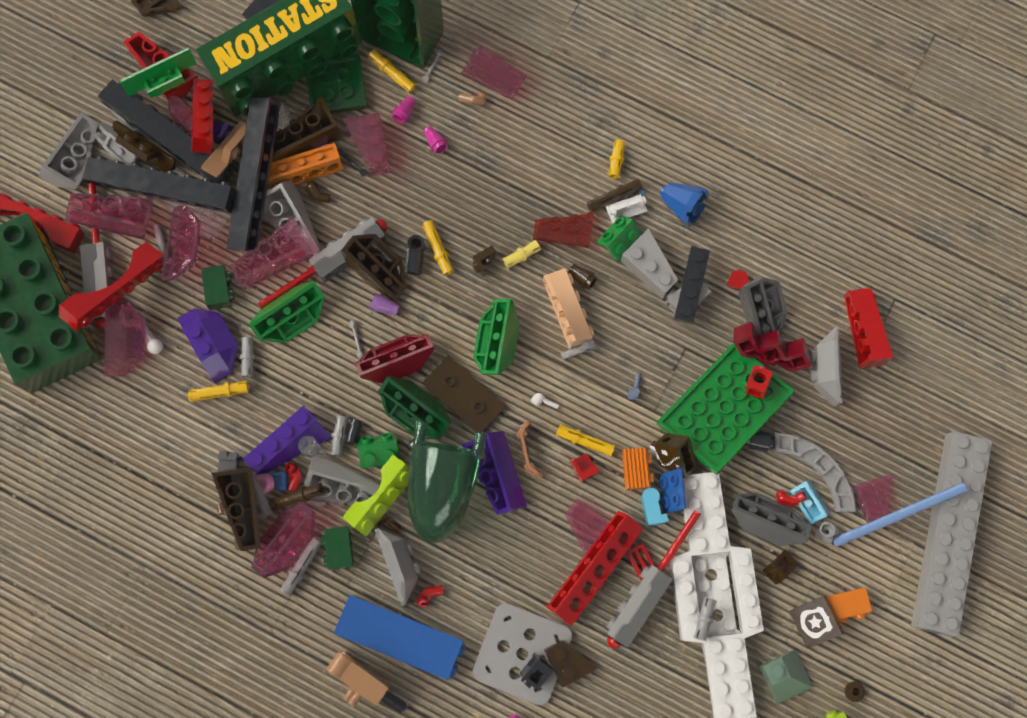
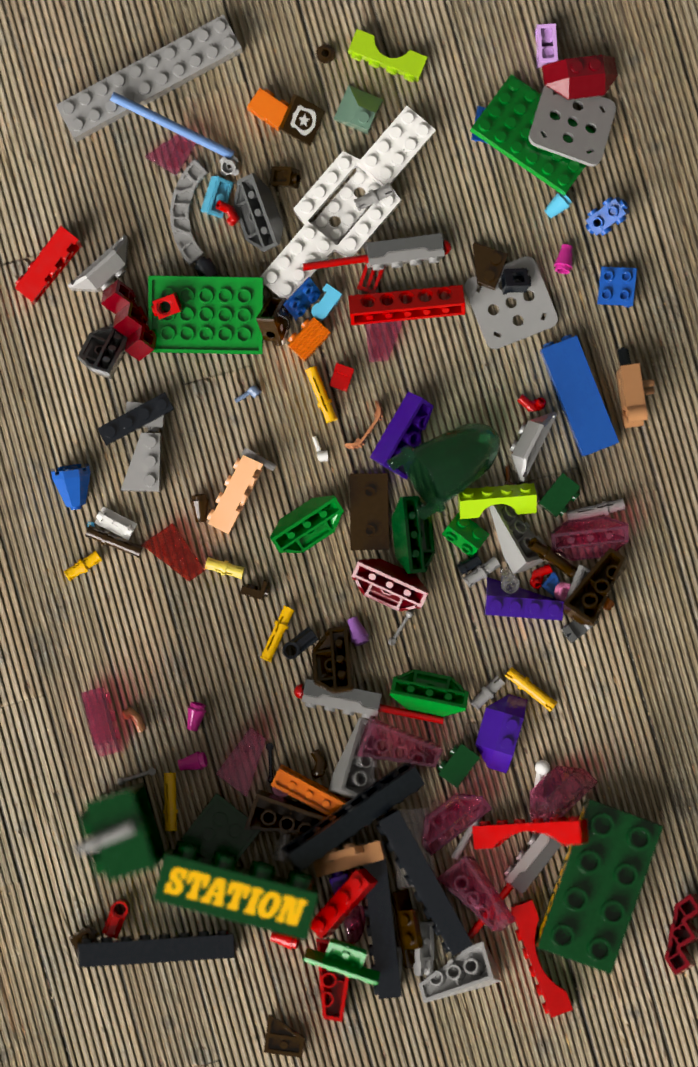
camera: 130 degrees left, 10 degrees up
(619, 237) = (144, 507): green bracket -> none
(737, 279) = (95, 391): red tile -> none

